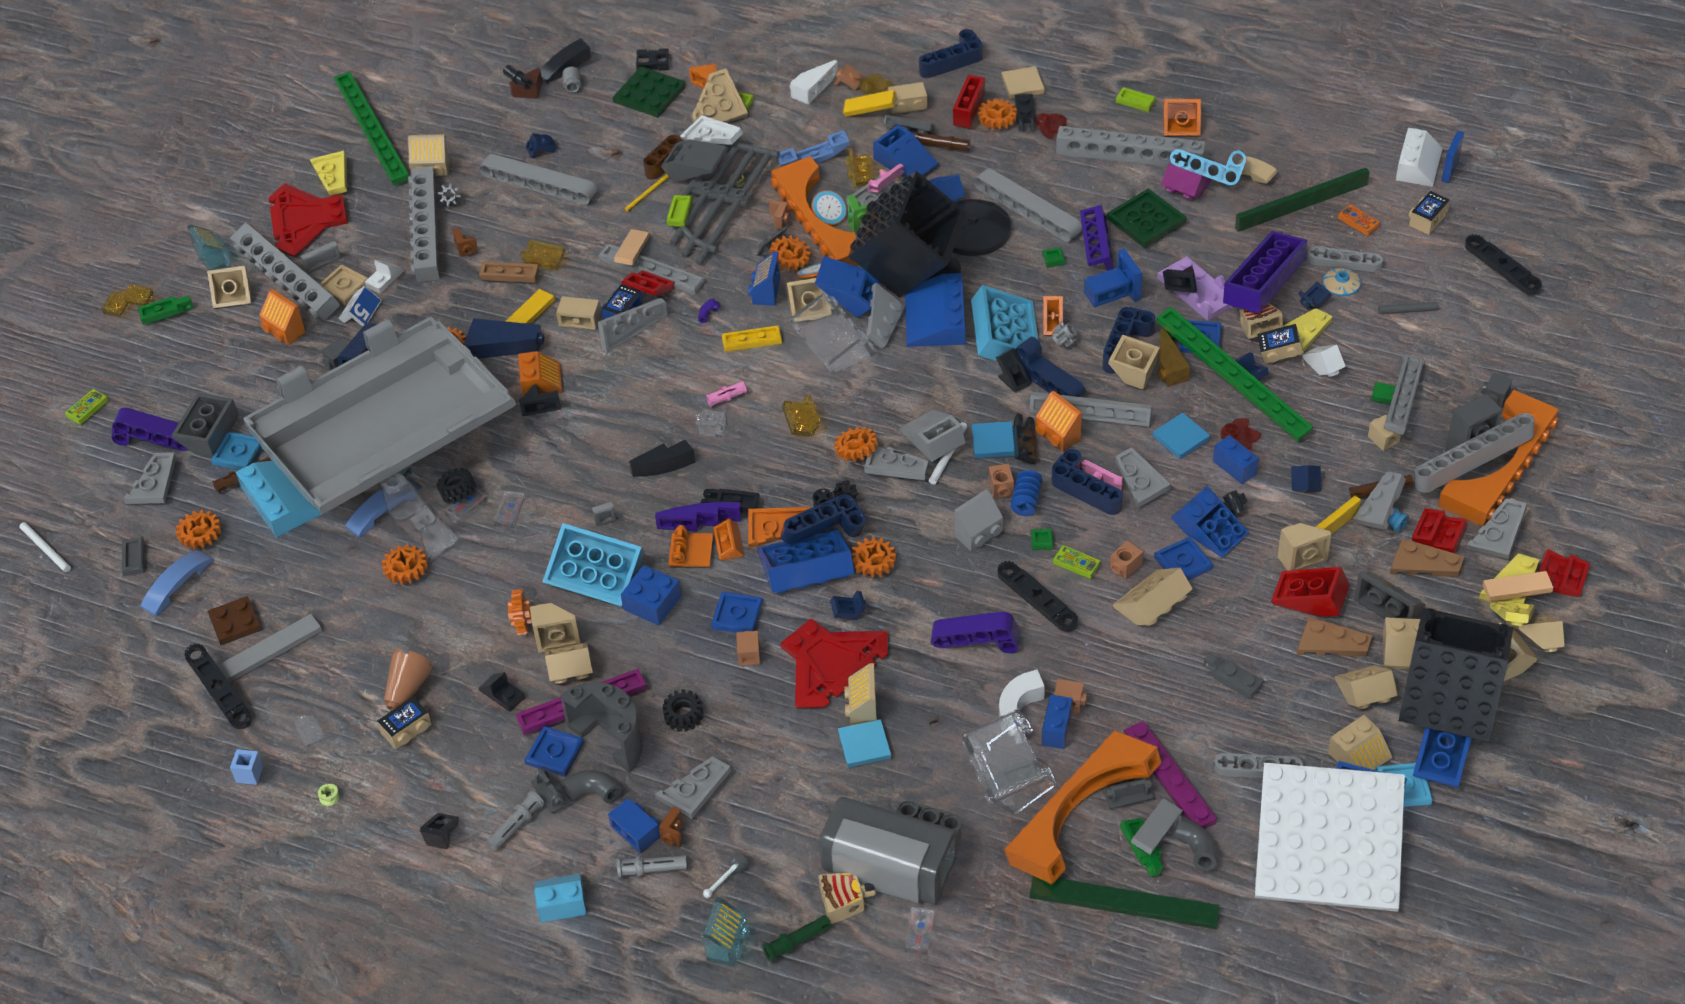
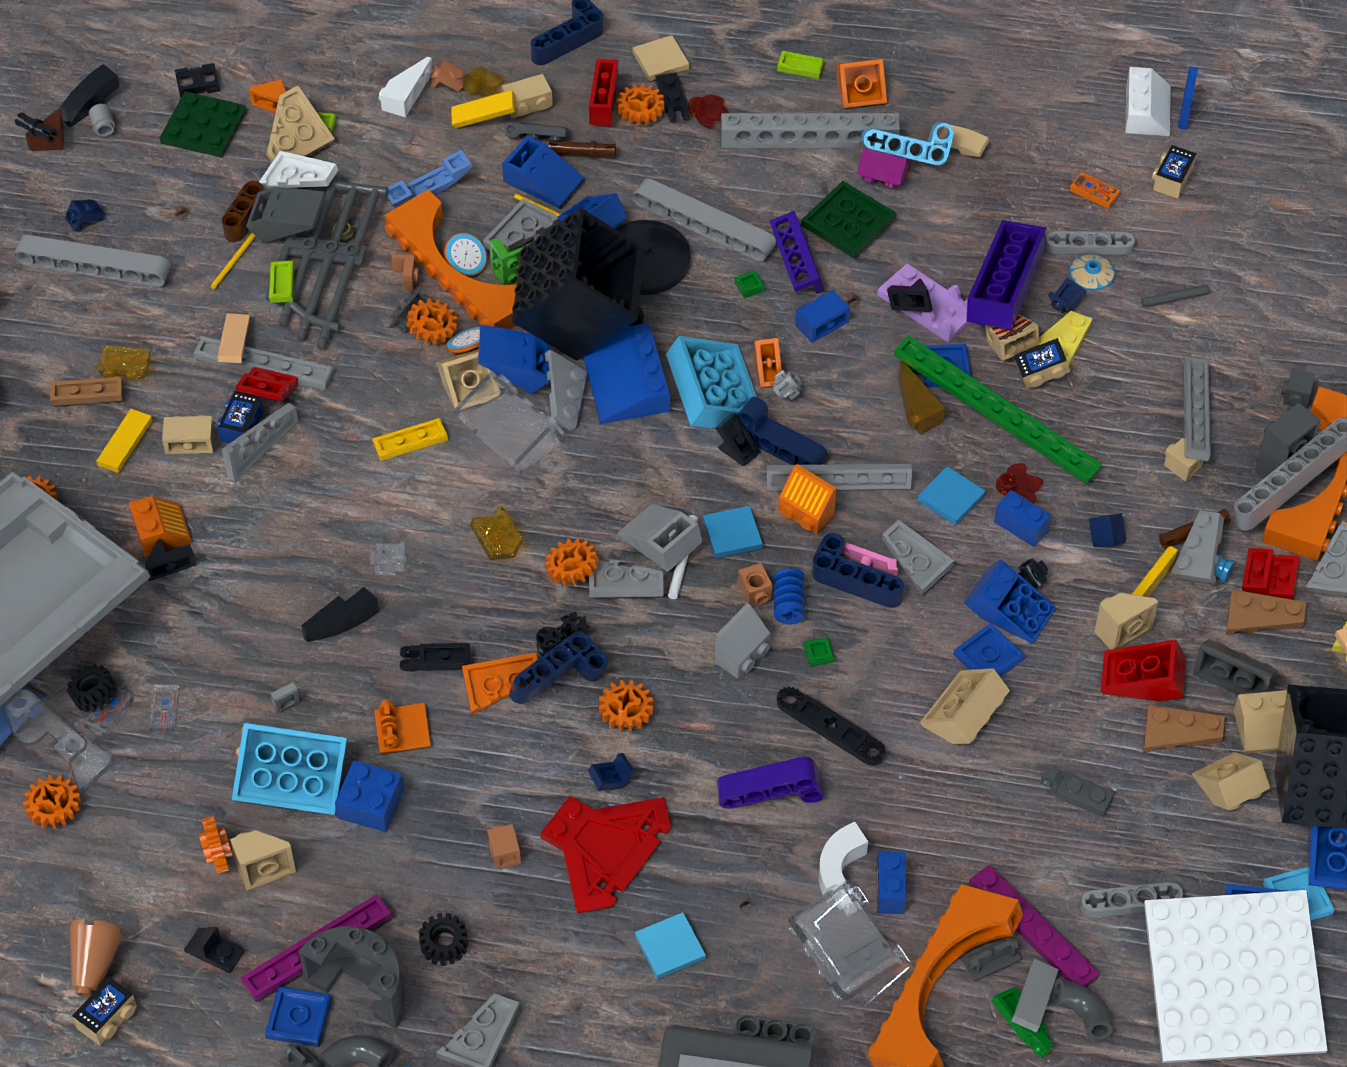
camera: 15 degrees left, 5 degrees up
(464, 245) = (18, 362): dark orange bracket -> none
(502, 338) = (101, 482): dark blue slope -> none
(568, 662) = (289, 898): tan slope -> none
(698, 515) = (401, 681): dark purple slope -> none
(705, 308) = (344, 407): dark purple arm -> none
(726, 393) = (384, 524): bright pink pin -> none
(728, 540) = (444, 709): orange slope -> none
(736, 612) = (477, 802): blue tile -> none
(766, 281) = (411, 362): blue slope -> none
(806, 562) = (547, 723): blue slope -> none
(860, 169) = (491, 198): clear yellow bracket -> none
(861, 696) = (656, 888): tan slope -> none
(886, 179) = (528, 207): bright pink piece -> none
(1024, 439) = (770, 526): black hinge -> none
(1073, 690) = (899, 842): nougat brick -> none
(1076, 562) = (865, 675): lime tile -> none
(1126, 560) = (926, 656): nougat brick -> none
(1128, 323) = (860, 358): dark blue beam -> none
(1132, 273) = (851, 296): blue tile -> none
(1134, 361) = (878, 409): tan slope -> none
(1248, 362) = (1019, 399): dark blue bracket -> none
(1301, 199) = (1024, 173): dark green tile -> none
(1325, 360) = (1096, 376): white slope -> none
(1360, 745) = (1242, 857): tan slope -> none
(1383, 393) = (1170, 408): green tile -> none
(1511, 271) = (1283, 232): black piece -> none

